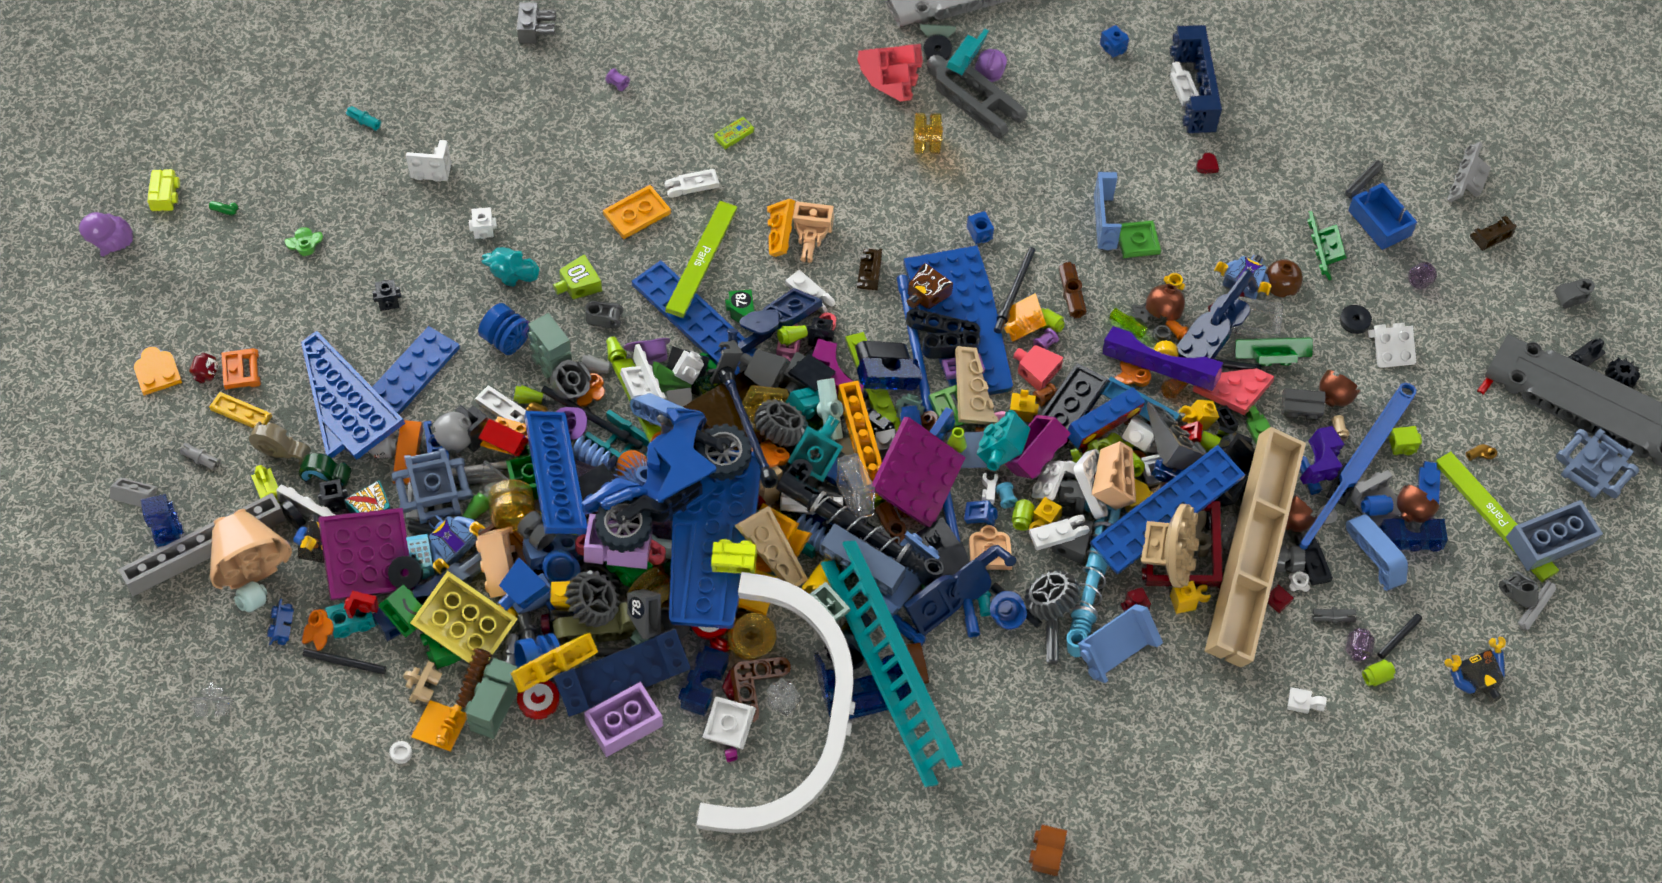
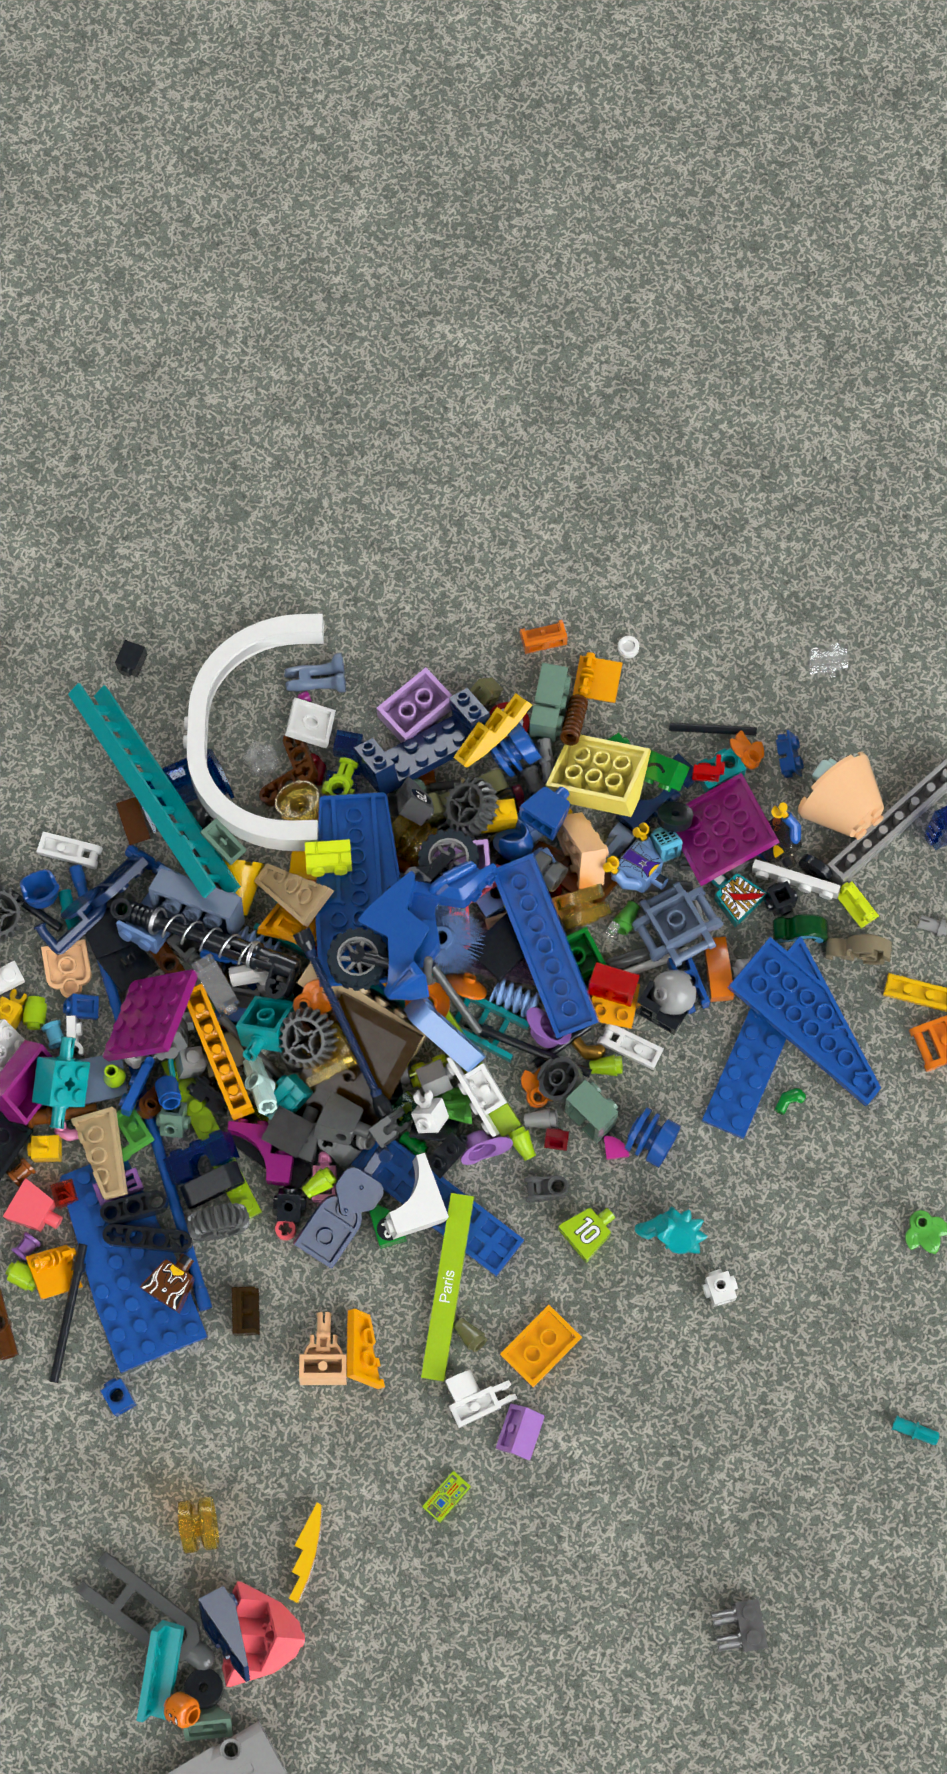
camera: 175 degrees right, 15 degrees up
(381, 350) = (788, 1097): none -> green arm
(387, 295) = (799, 1173): black brick -> none
(420, 691) = (630, 715): tan hips -> none
(430, 166) = (795, 1369): white bracket -> none
(481, 773) = (544, 637): none -> orange hinge
(552, 721) = (489, 691): none -> olive brick
(585, 347) = (556, 1139): none -> dark red plate
(617, 79) = (611, 1552): medium lavender bush -> none
(639, 438) = (455, 998): none -> dark grey bar
(668, 161) = (520, 1431): none -> medium lavender panel
(681, 340) = (447, 1154): none -> black hinge
(690, 225) = (470, 1335): none -> olive cone
(705, 195) = (462, 1385): none -> white brick
(709, 651) = (342, 778): none -> lime connector
(711, 305) = (424, 1206): none -> white arch
(725, 767) = (305, 672): none -> sand blue piece
(805, 284) = (314, 1271): white hinge -> none
(847, 112) = (309, 1543): none -> yellow slope
(881, 321) = (218, 1222): none -> dark grey gear
(896, 815) = (131, 659): none -> black brick
(916, 70) = (223, 1628): none -> wedge
(955, 30) = (181, 1710): none -> orange head
(978, 649) = (68, 850): none -> white plate
(991, 64) = (128, 1679): medium lavender piece -> none
(1010, 370) = (64, 1193): none -> clear red slope

